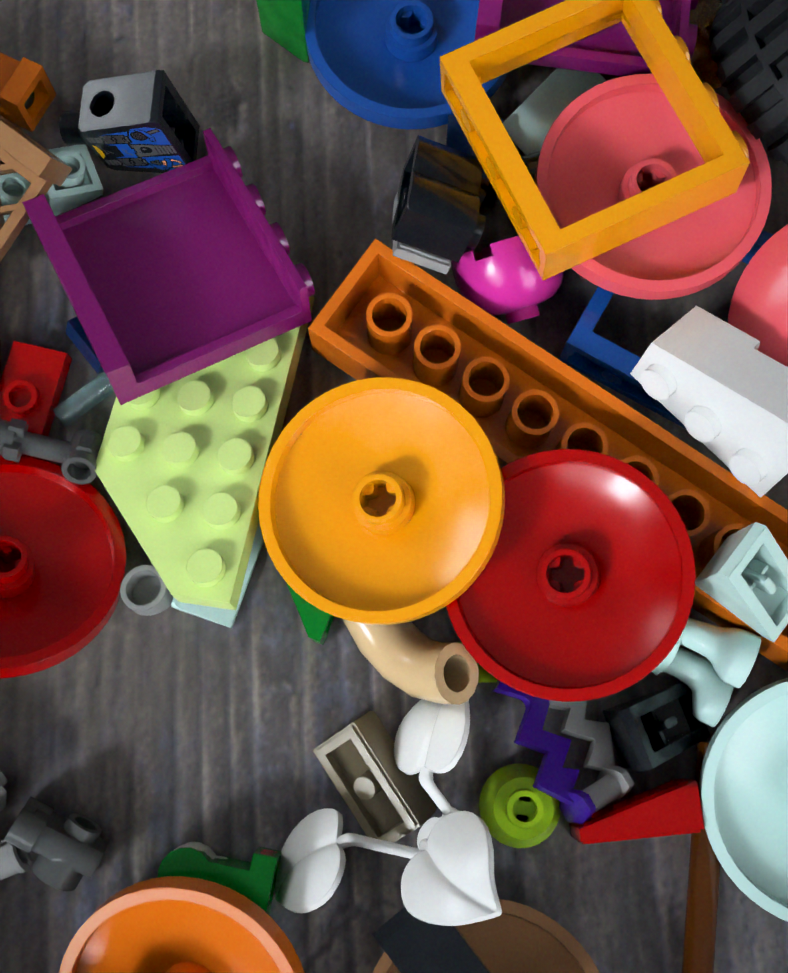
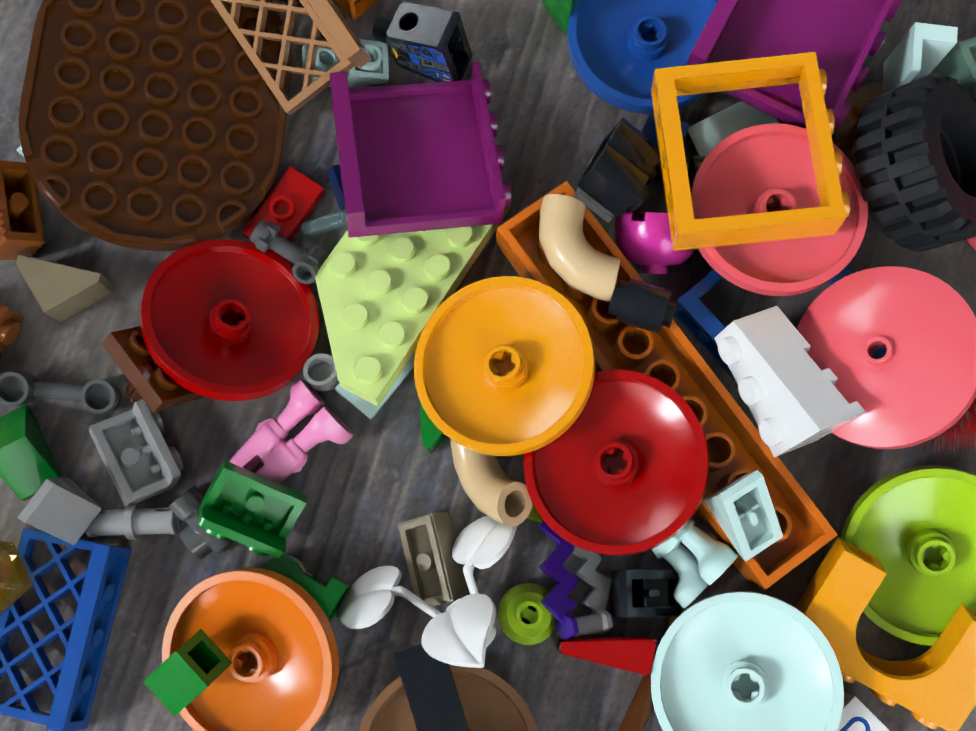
camera: 20 degrees right, 0 degrees up
(114, 806) = (250, 510): none -> green bracket
(128, 718) = (287, 457): none -> bright pink piece
(413, 326) = (570, 252): none -> tan cylinder
(530, 362) = (642, 305): none -> black brick

